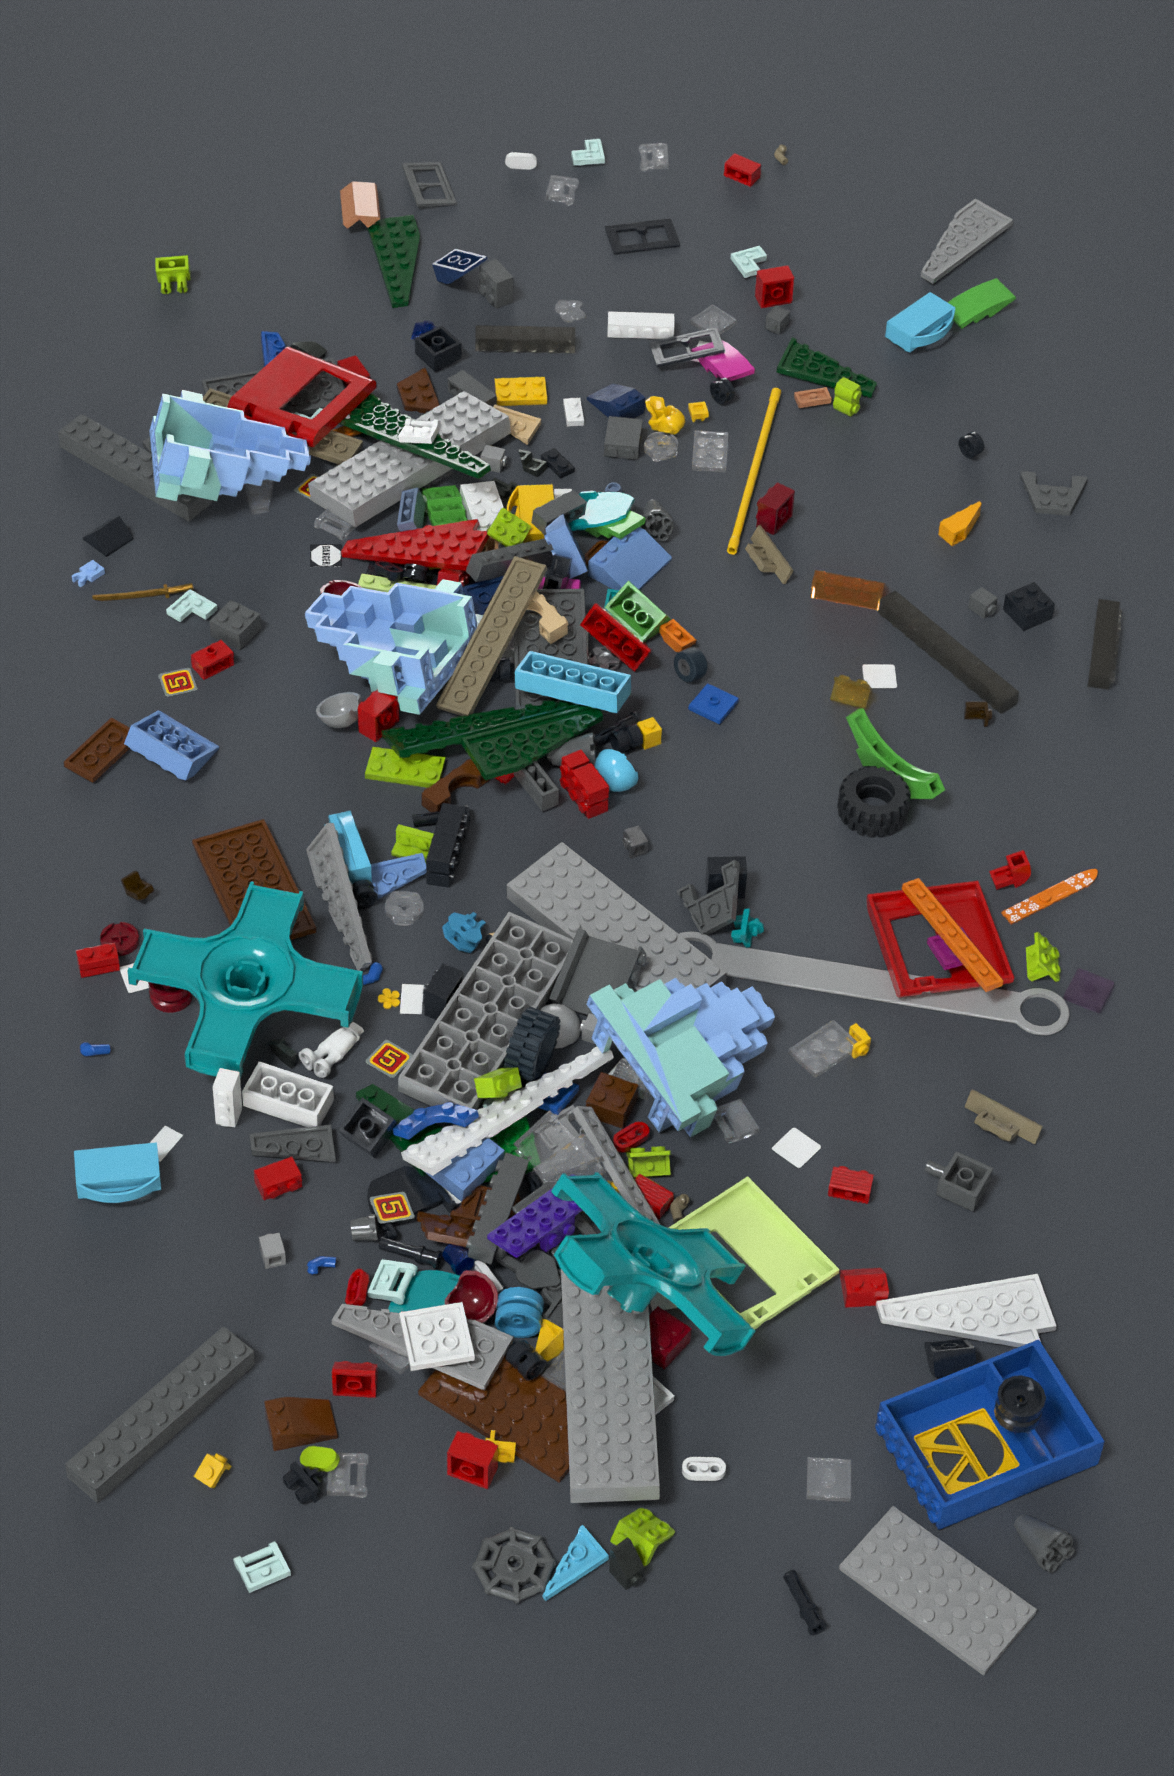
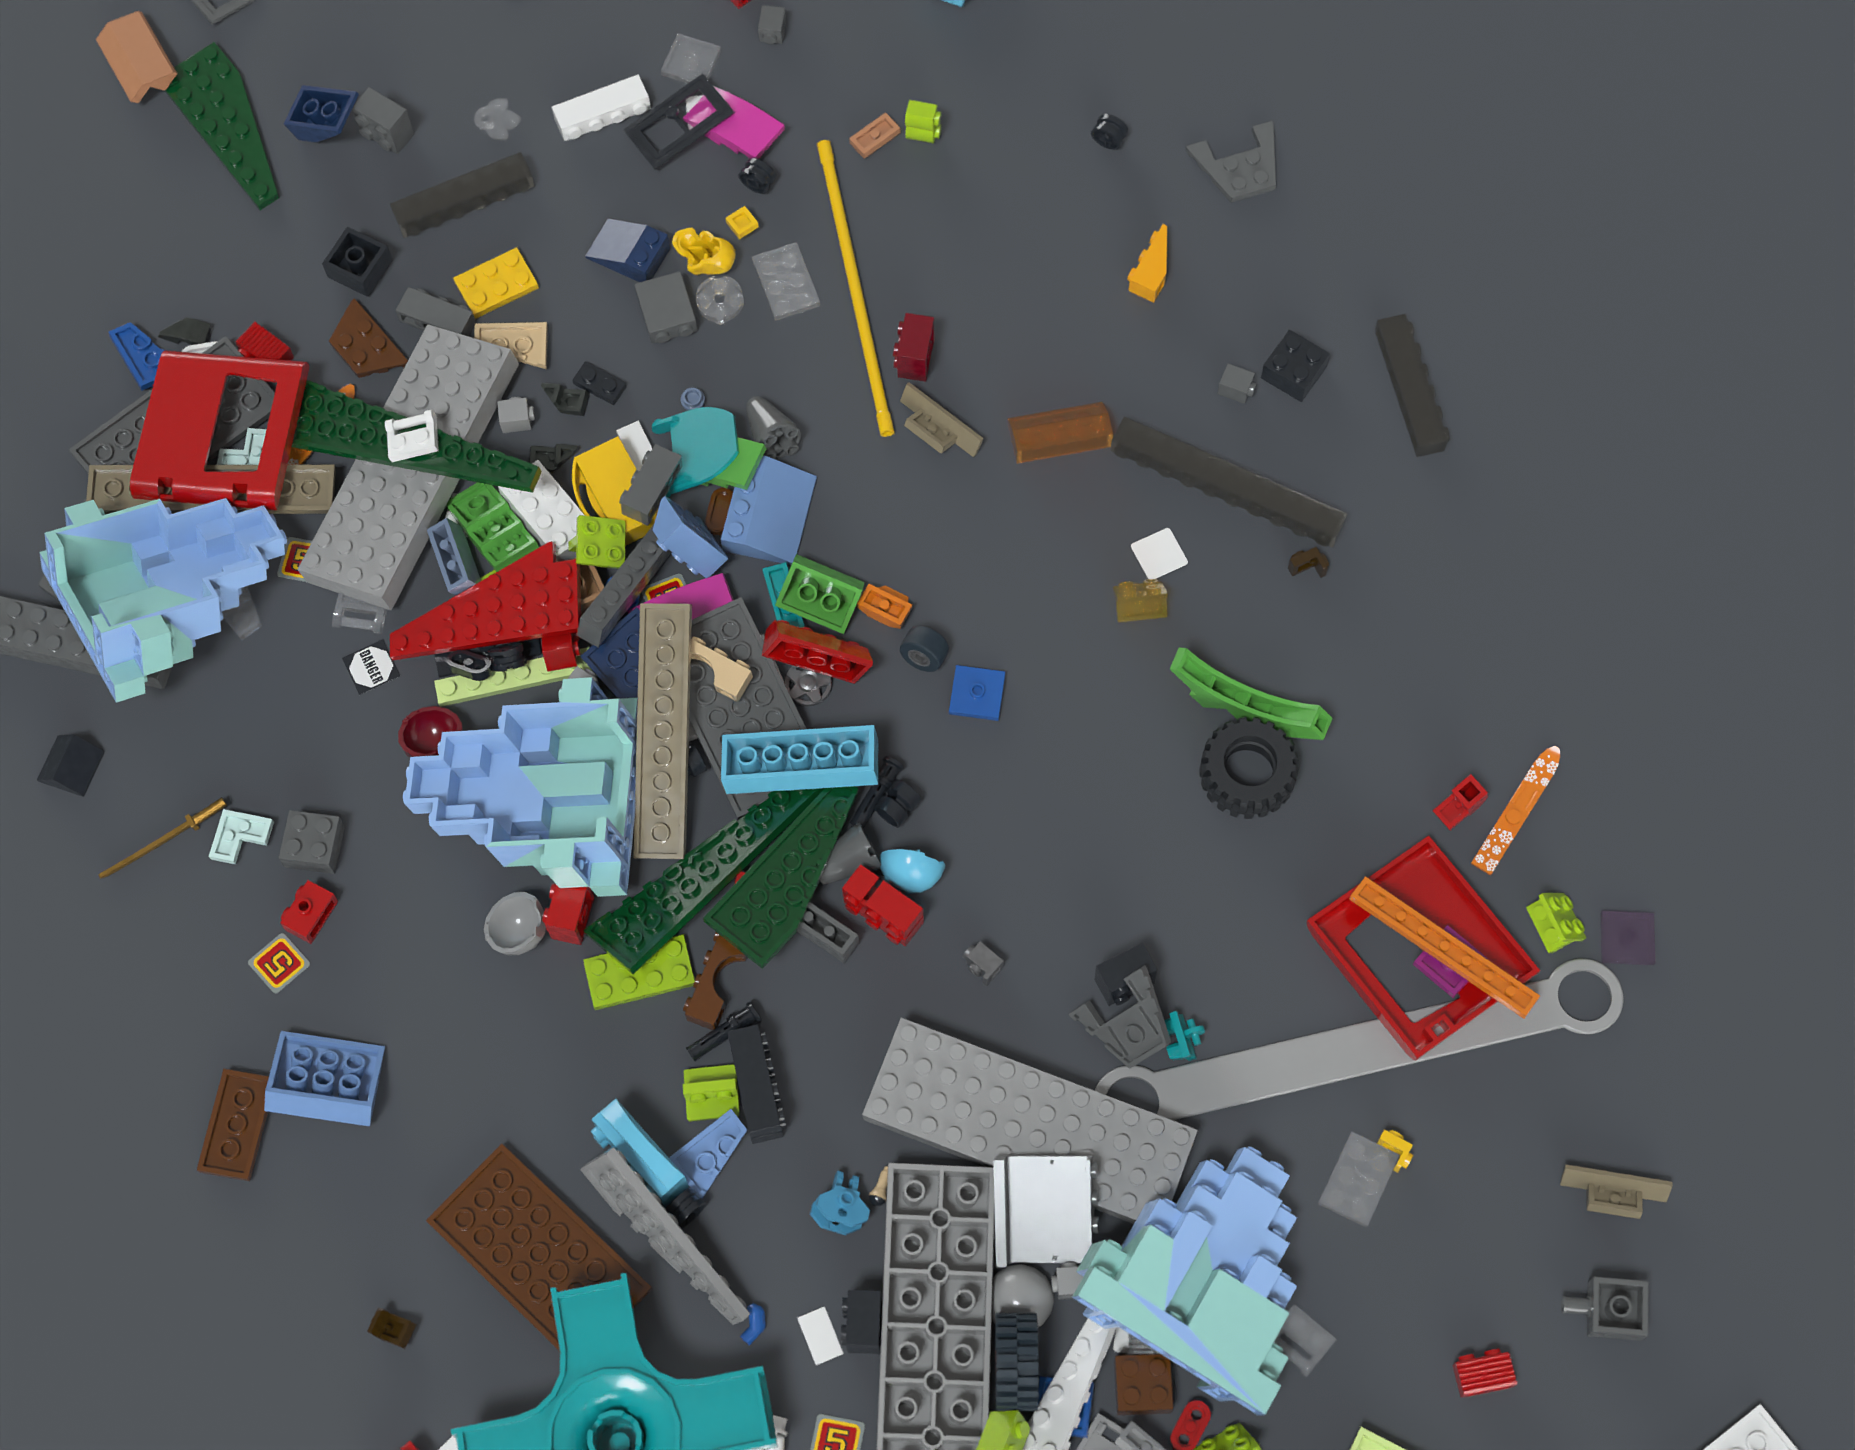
camera: 20 degrees left, 20 degrees up
(90, 571) = (74, 834): light blue plate -> none
(124, 936) = (407, 1417): dark red tile -> none
(389, 998) = (793, 1350): yellow plant -> none
(404, 898) = (738, 1212): clear plate -> none
(422, 327) = (322, 235): clear blue bracket -> none
(559, 573) = (697, 586): black brick -> none
(573, 412) = (580, 288): white plate -> none
(650, 732) = (923, 780): yellow brick -> none
(796, 1147) = (1390, 1342): white sticker -> none
(819, 368) = (862, 83): dark green wing -> none

